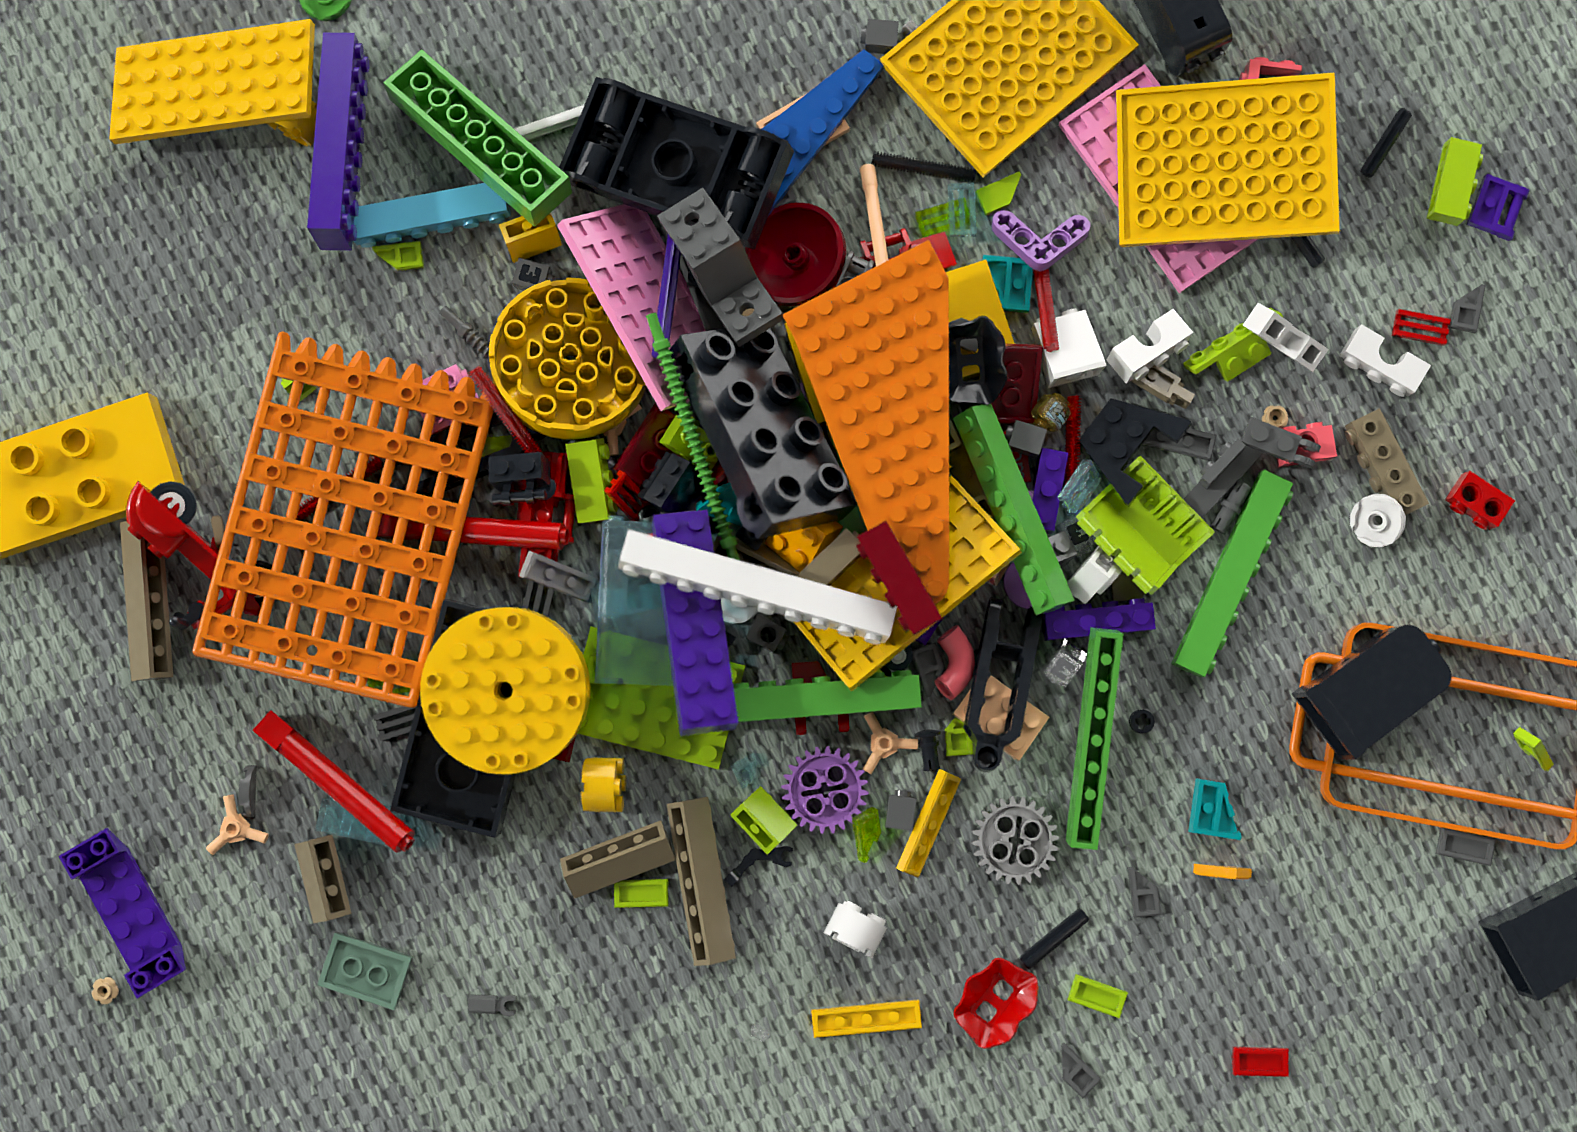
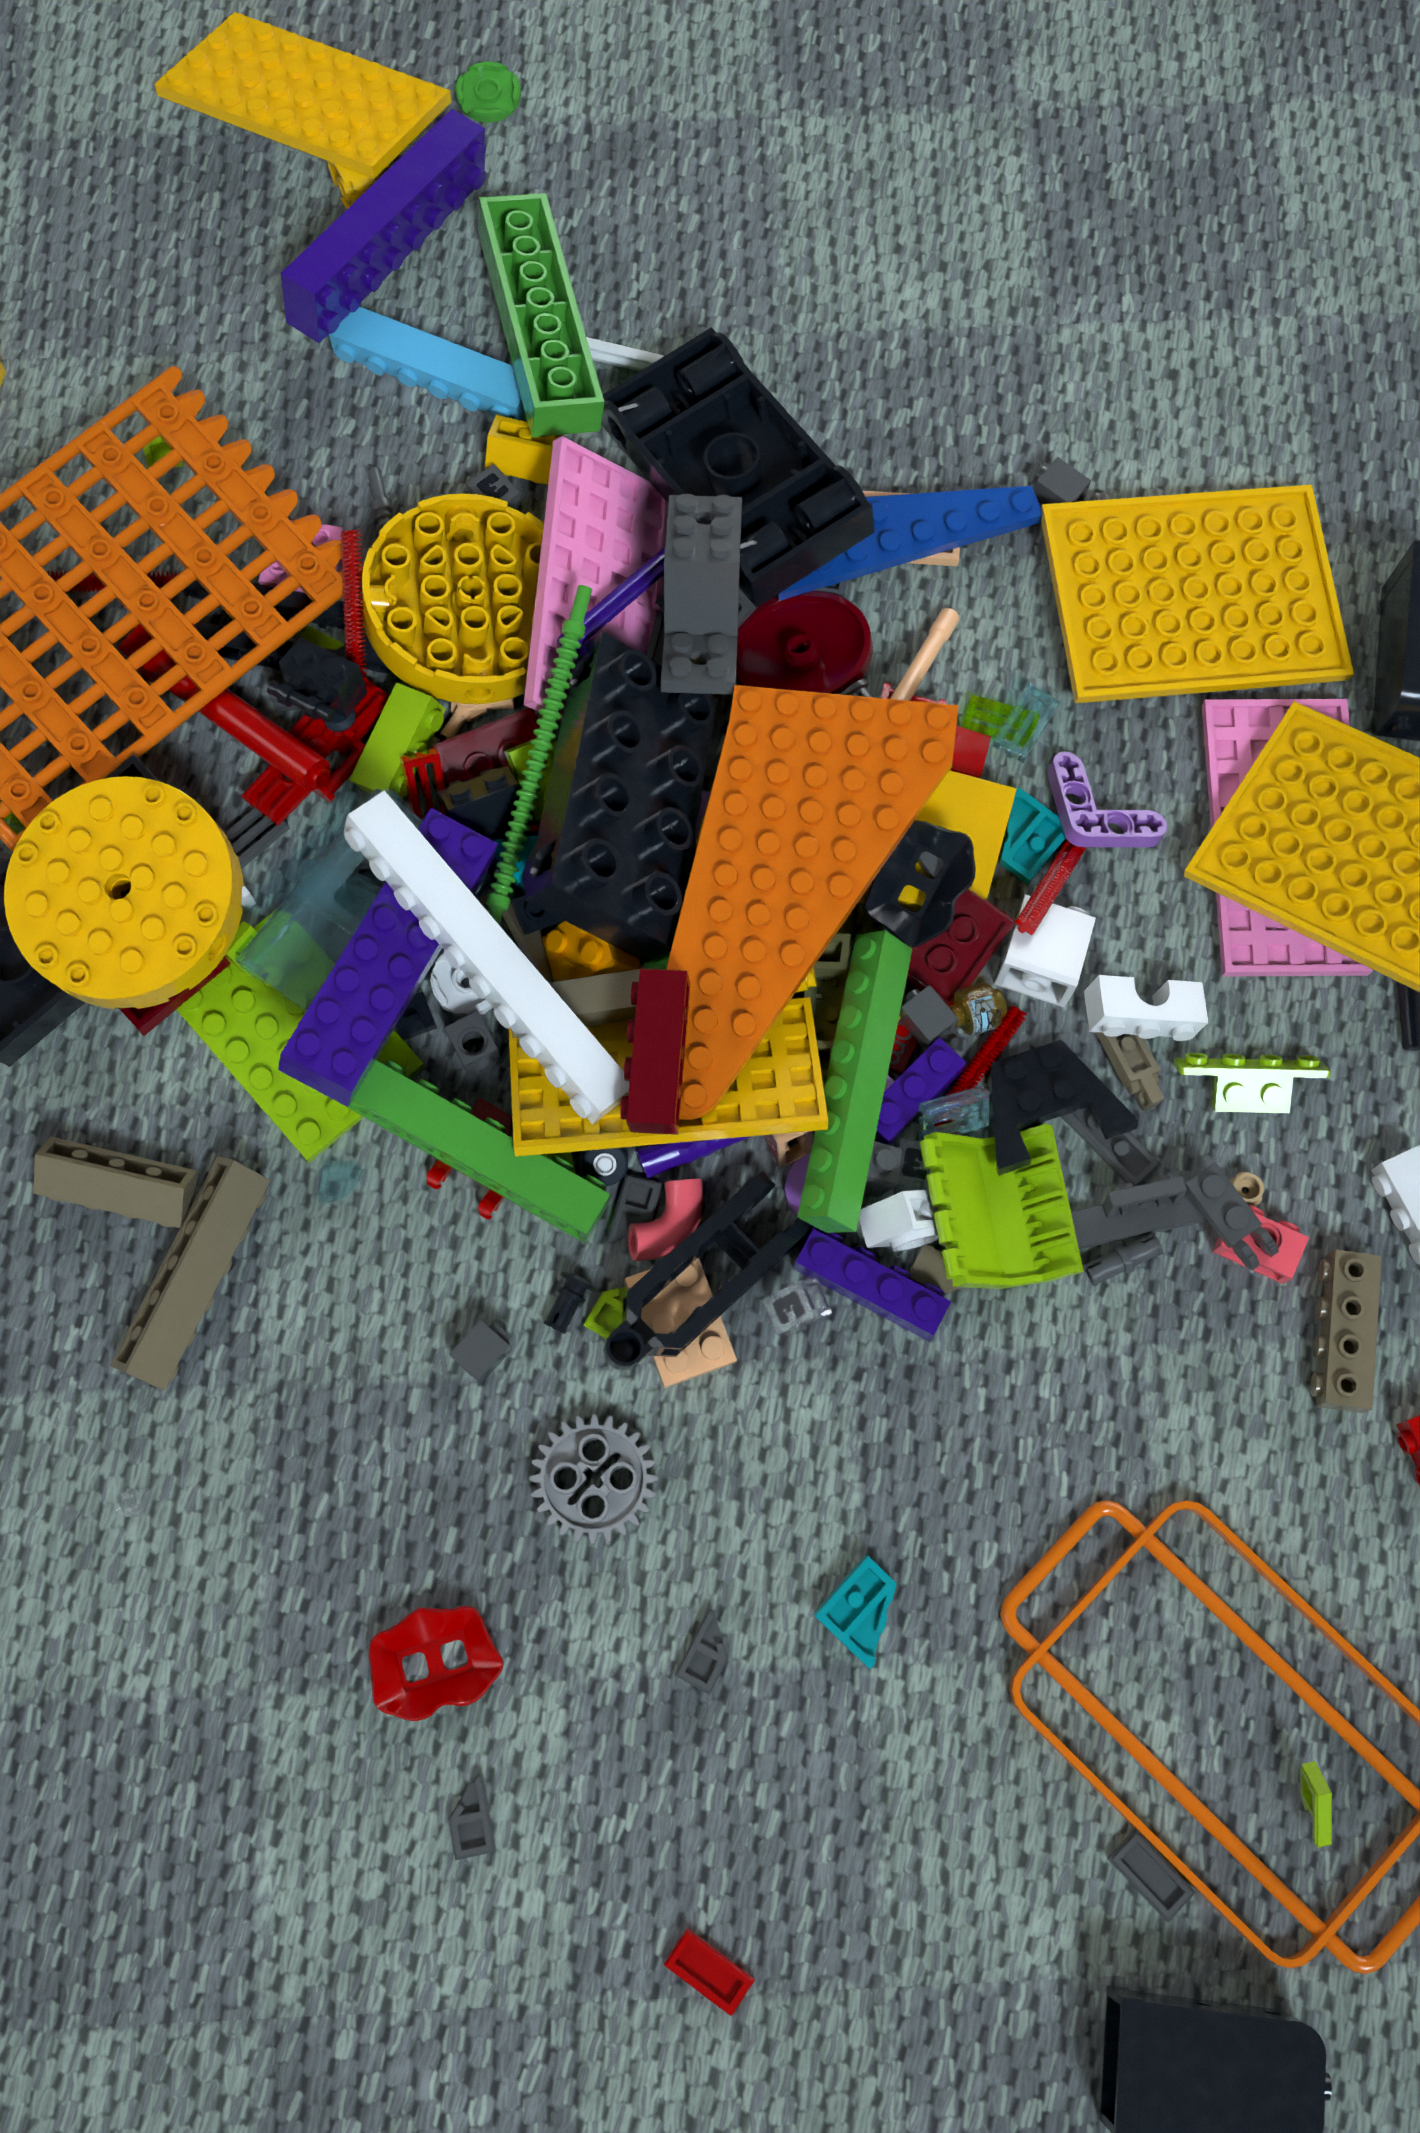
camera: 25 degrees right, 10 degrees down
(401, 255) = (373, 391): lime tile -> none
(557, 576) = (281, 819): light grey tile -> none
(603, 784) = (160, 1084): yellow brick -> none
(641, 893) = (115, 1243): lime tile -> none
(757, 854) = (275, 1287): black piece -> none
(763, 820) = (314, 1250): lime brick -> none
(829, 813) = (396, 1296): medium lavender gear -> none
(856, 929) = (327, 1451): white brick -> none
(866, 831) = (424, 1348): clear neon green tile -> none
(866, 1018) = (266, 1574): yellow tile -> none
(884, 743) = (519, 1259): light nougat piece -> none
(921, 166) = (1013, 654): black axle -> none
(928, 823) = (504, 1388): yellow tile -> none
(998, 194) = (1082, 735): lime tile -> none
(1054, 938) = (559, 1633): black axle -> none
(1094, 738) = (768, 1415): bright green brick -> none
(1097, 996) = (562, 1743): lime tile -> none
(1146, 728) = (843, 1429): black bush -> none
(1222, 871) = (822, 1692): light orange tile -> none
(1232, 574) = (1072, 1336): bright green brick -> none
(1285, 337) = (1315, 1097): white arch -> none
(1364, 523) = (1276, 1388): white plate -> none
(1374, 689) = (1158, 1585): black piece -> none

